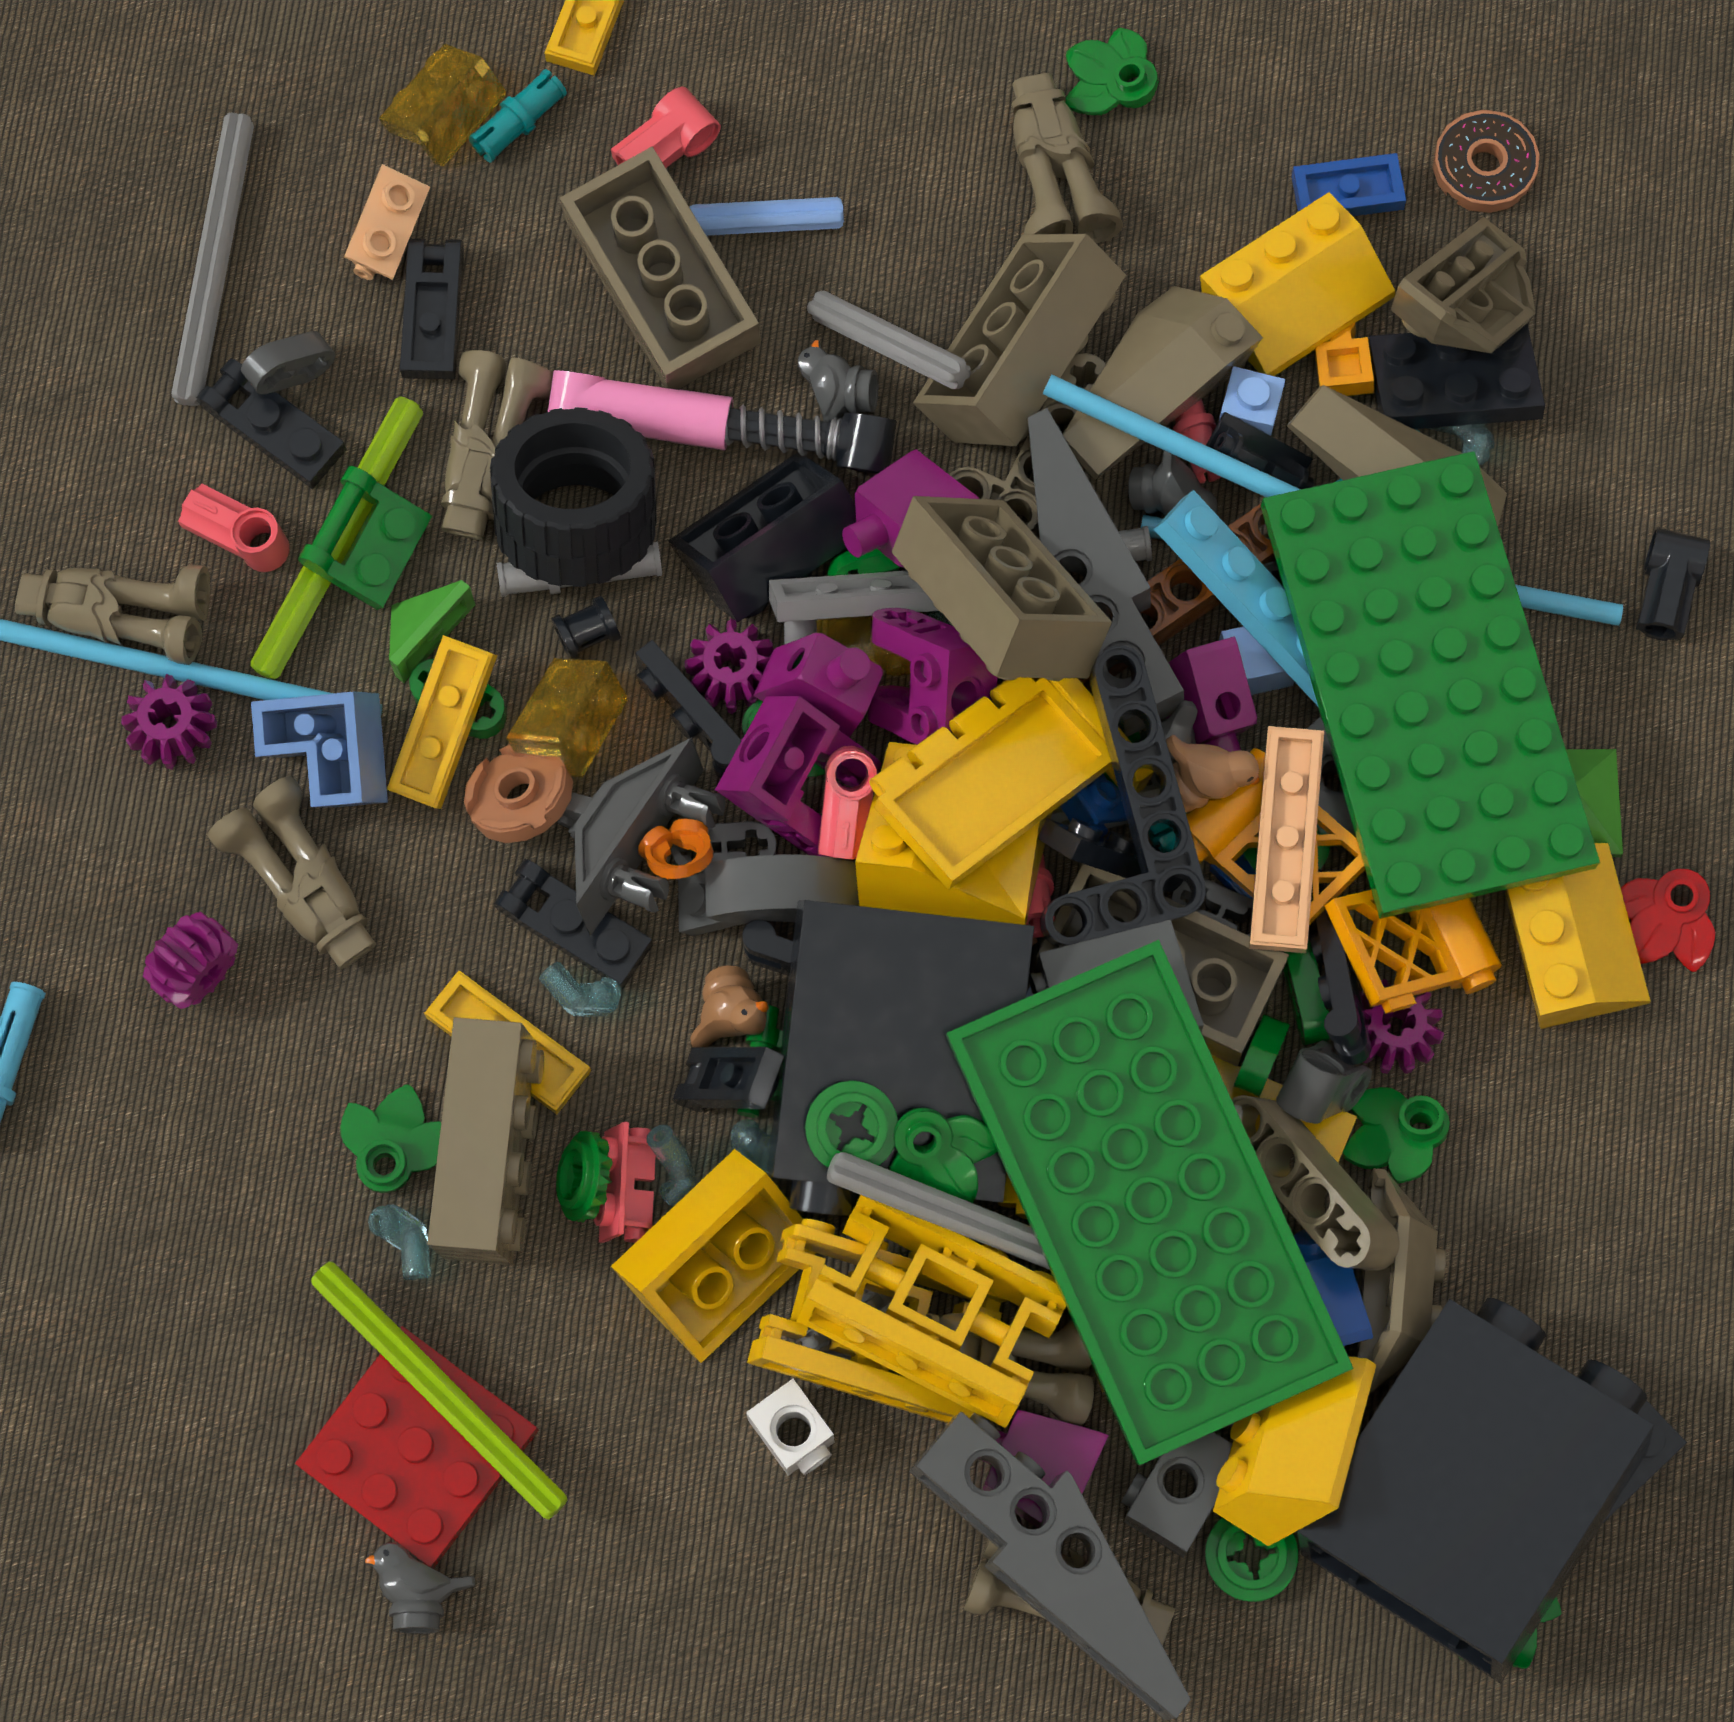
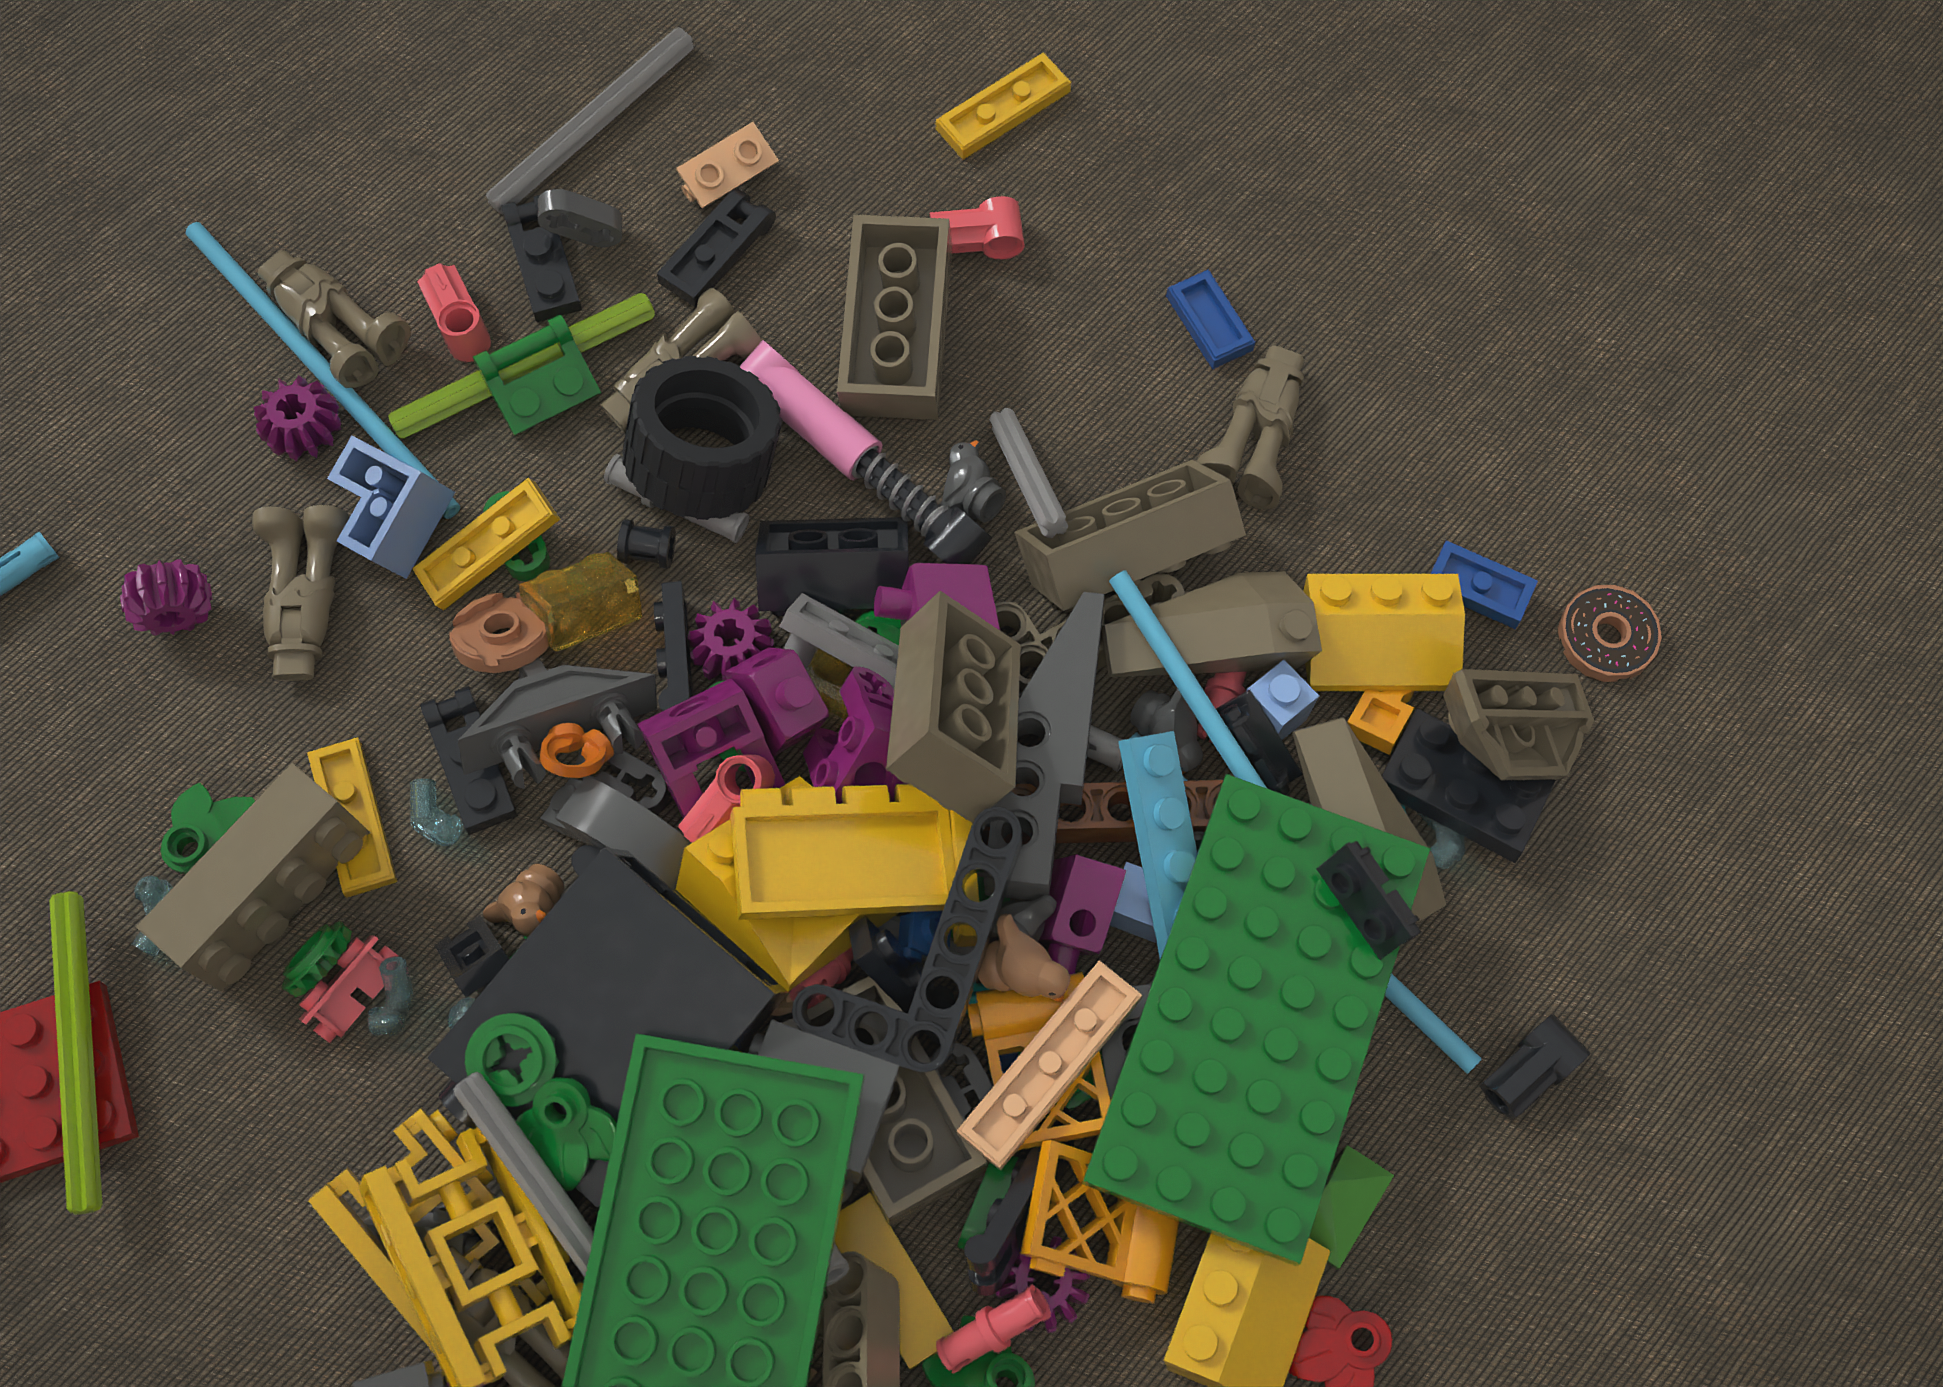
camera: 30 degrees right, 5 degrees down
(422, 622) = (540, 461): bright green slope -> none
(444, 102) = (837, 112): clear yellow bracket -> none
(517, 115) = (883, 151): teal pin -> none
(713, 1255) = (355, 1087): yellow slope -> none
(769, 216) = (1011, 331): light blue axle -> none
(783, 1405) = (299, 1257): white brick -> none
(937, 88) = (1210, 319): none -> blue tile
(1105, 70) = (1351, 387): green plate -> none
(1261, 1055) = (910, 1231): green beam -> none
(1322, 1084) = (937, 1291): dark grey piece -> none
(1386, 1085) = (993, 1329): none -> coral pin
(1470, 534) = (1357, 884): none -> black hinge

